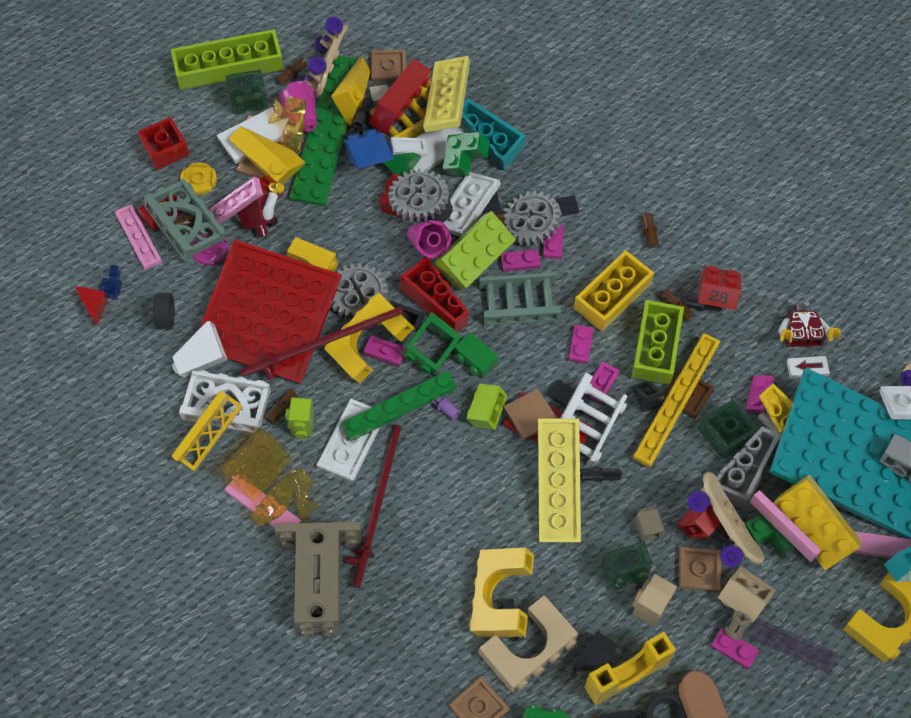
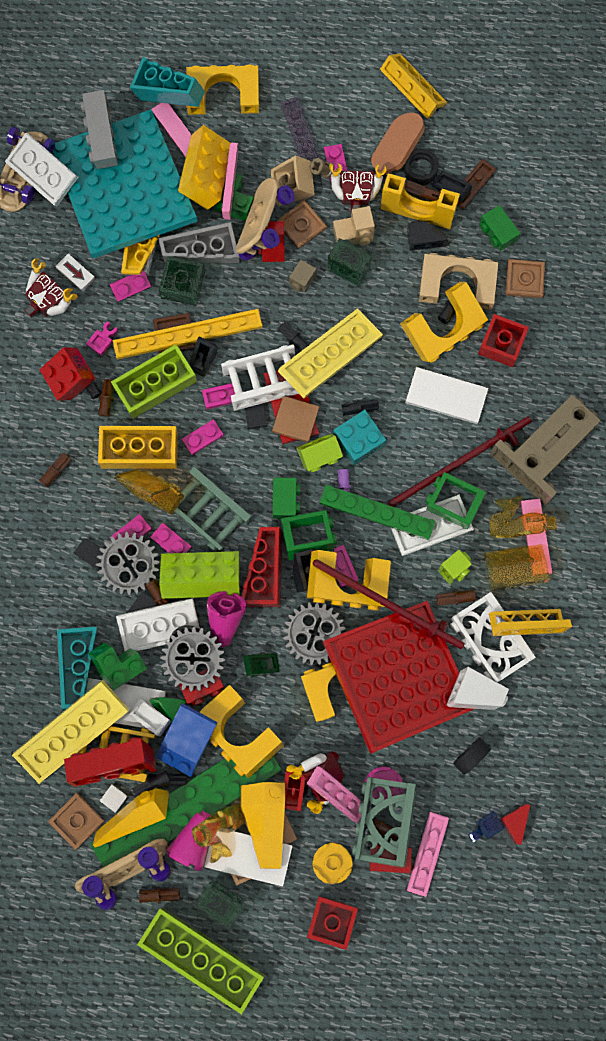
camera: 130 degrees left, 15 degrees up
(353, 481) = (448, 515): none -> green window
(364, 180) = (248, 757): none -> yellow arch
(372, 240) = (261, 664): none -> dark green slope
(440, 546) = (446, 395): none -> white tile
(440, 626) = (503, 340): none -> red brick
(470, 446) = (359, 437): none -> teal brick
(495, 471) = (357, 407): none -> black axle
(570, 264) = (151, 489): none -> clear yellow slope
(641, 695) = (422, 191): none -> reddish brown axle
(695, 636) = (356, 187): none -> torso
(729, 337) = (101, 340): none -> dark pink plate

